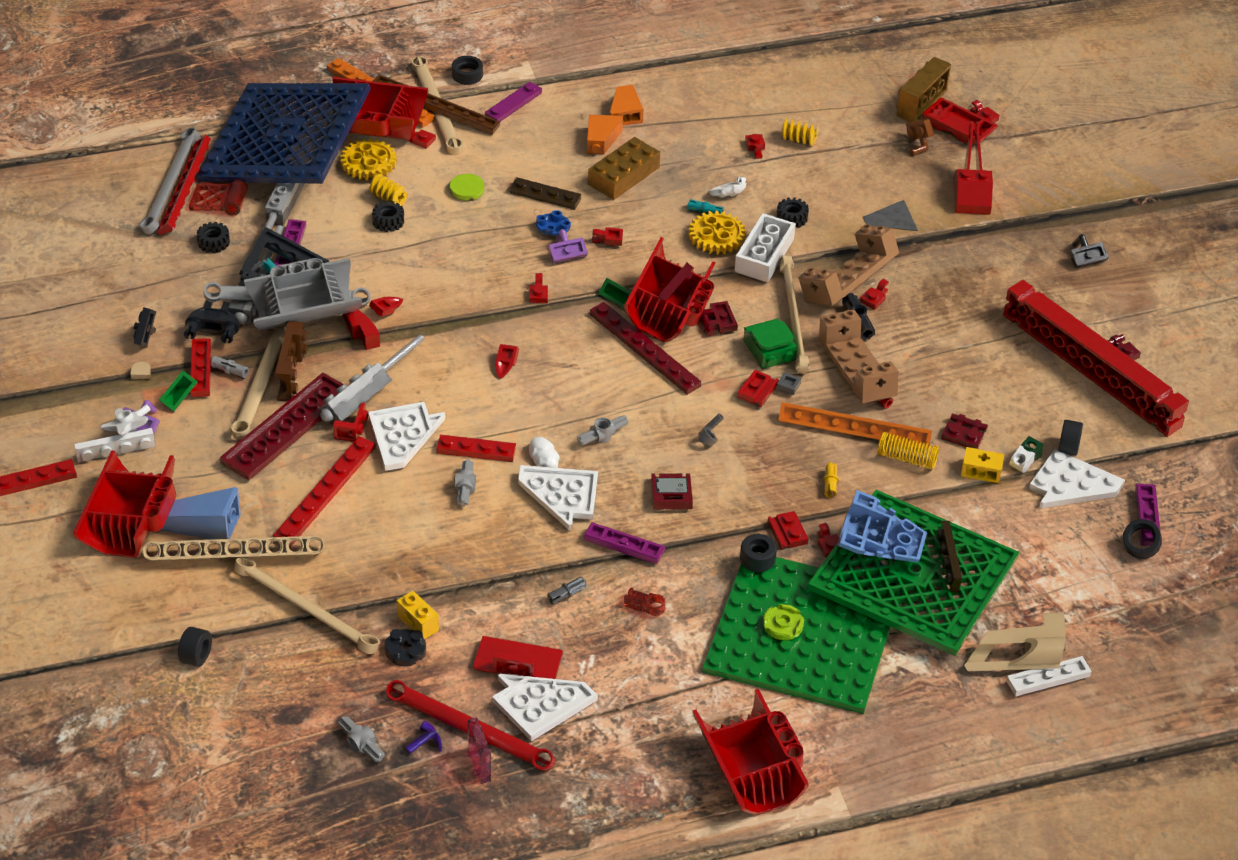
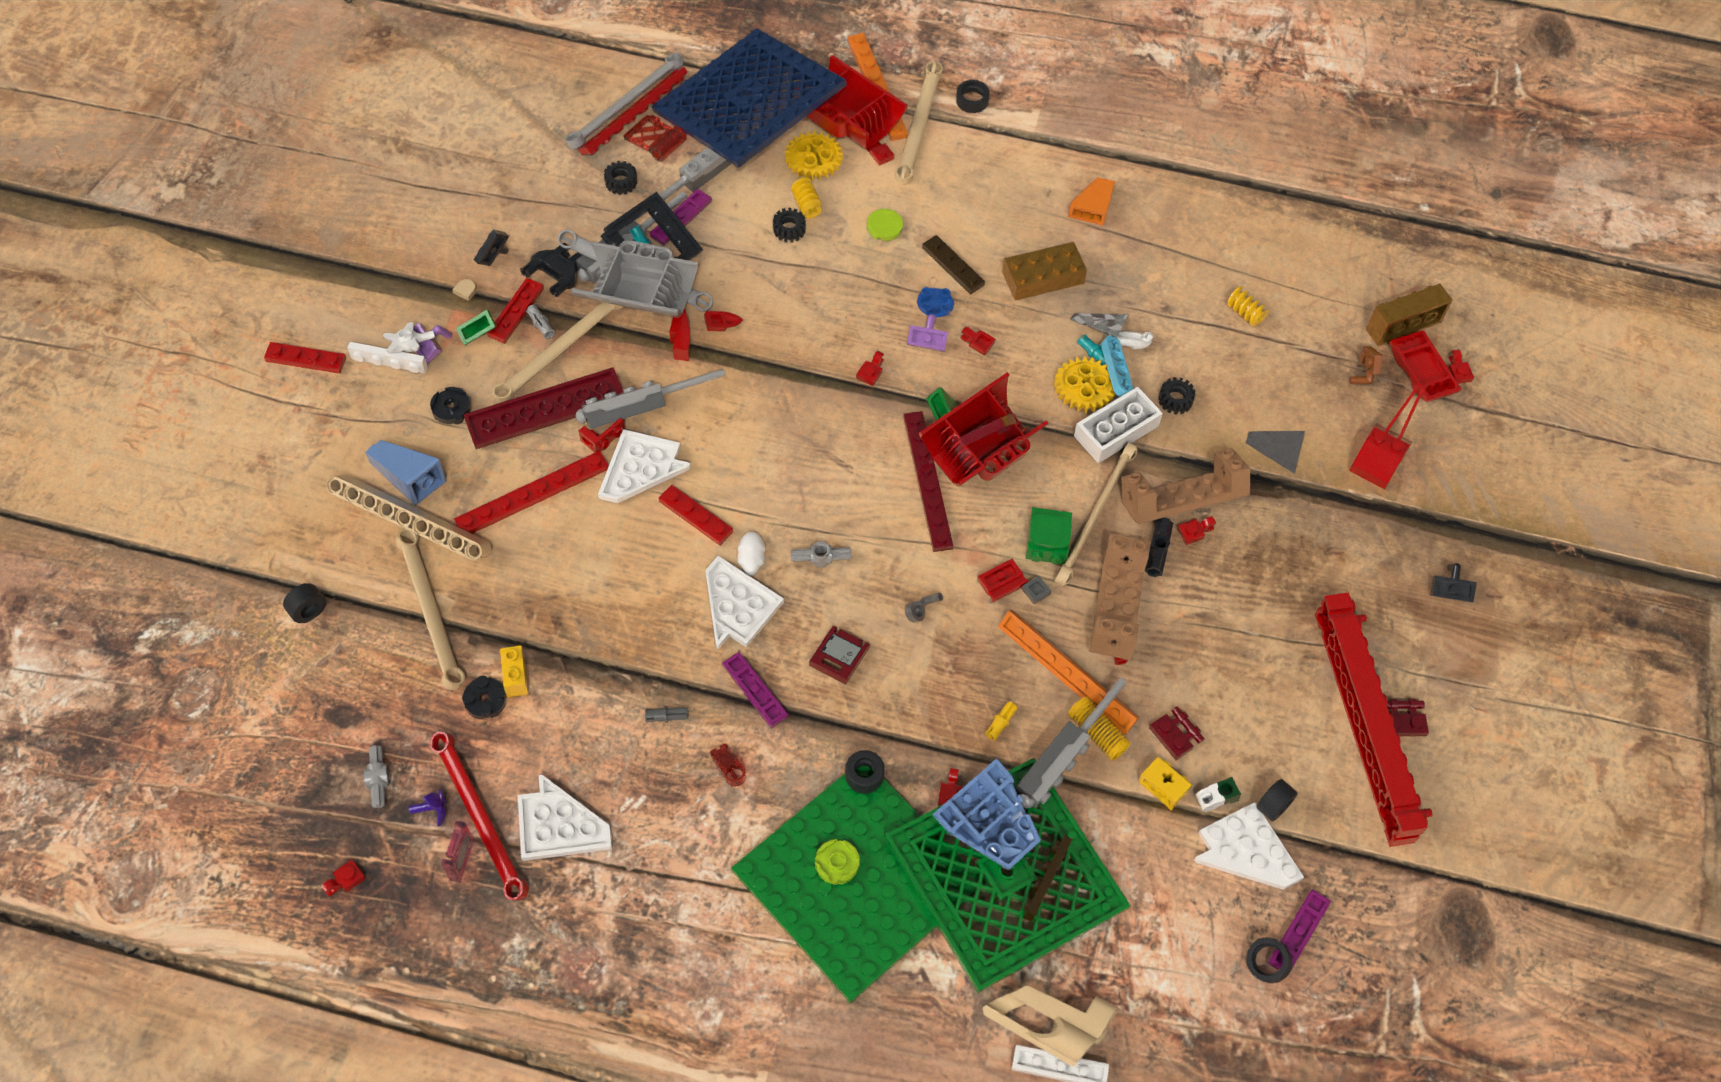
camera: 30 degrees right, 15 degrees up
(125, 508) = (345, 427): red panel -> none
(207, 464) = (450, 415): none -> black plate
(291, 352) = (600, 328): reddish brown piece -> none
(392, 820) = (345, 877): none -> red plate
(453, 110) = (920, 128): reddish brown tile -> none
(465, 482) = (656, 548): light grey axle -> none
(505, 359) = (787, 431): red plate -> none
(514, 101) = (992, 150): magenta plate -> none
(517, 658) = (571, 766): red bracket -> none
(602, 132) = (1051, 221): orange slope -> none
(704, 183) = (1106, 323): none -> sticker
(723, 318) = (1024, 485): dark red plate -> none
(733, 208) = (1112, 349): none -> medium azure beam
(756, 143) = (1196, 299): red plate -> none
(758, 758) = (694, 1001): red panel -> none
(788, 530) = (921, 756): red plate -> none
(897, 472) = (1061, 755): none -> piece

